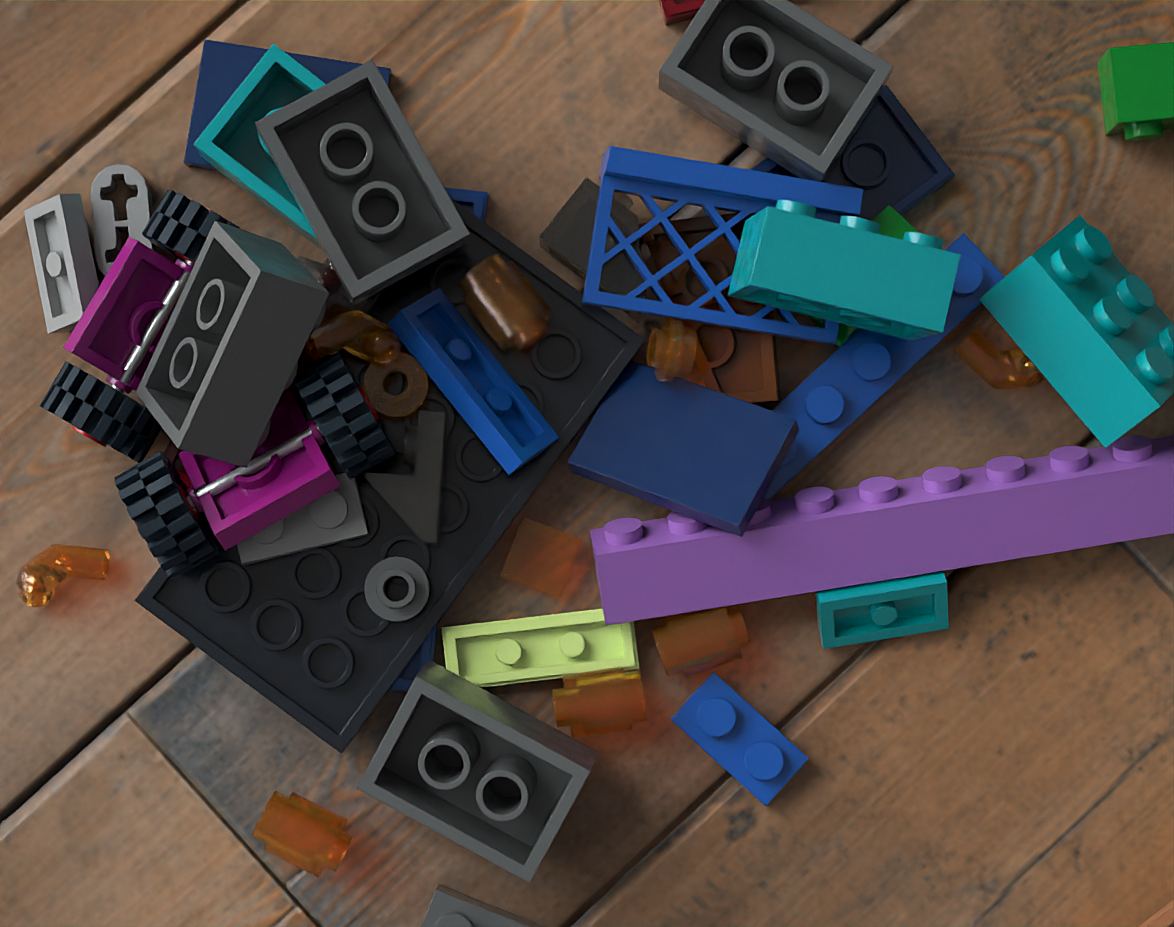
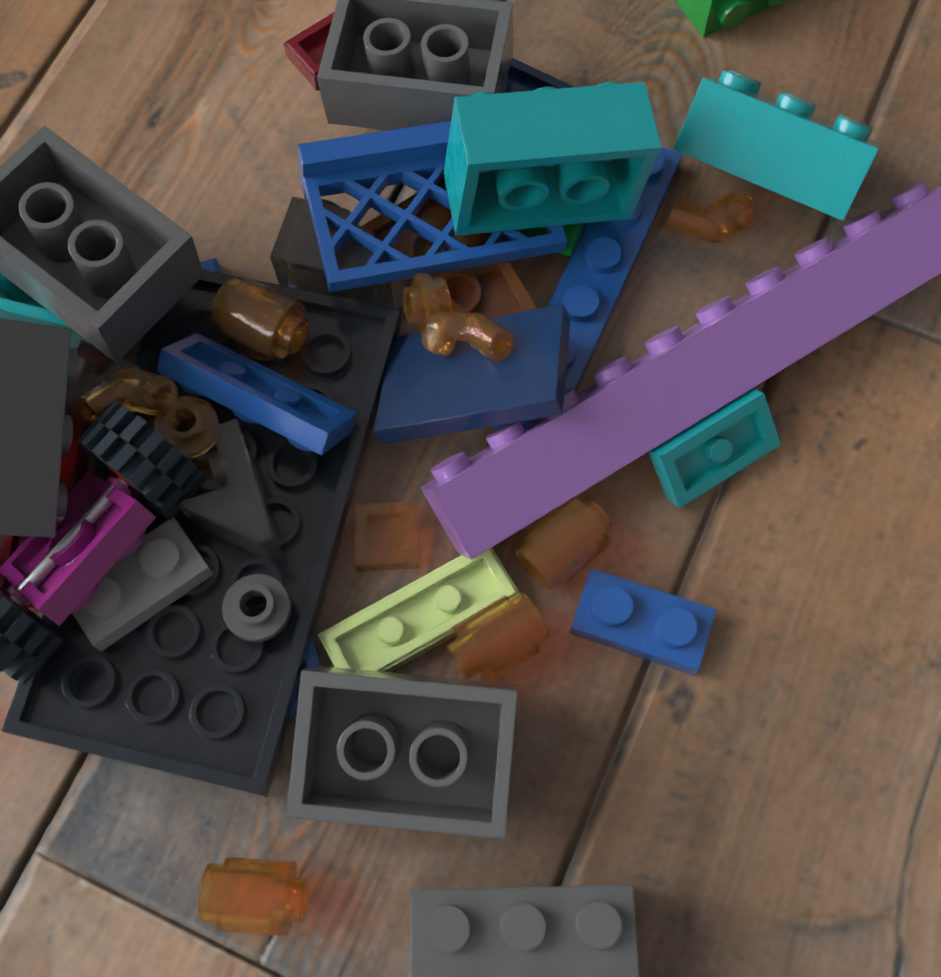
camera: 15 degrees left, 15 degrees down
(681, 394) = (469, 327): none -> clear orange arm

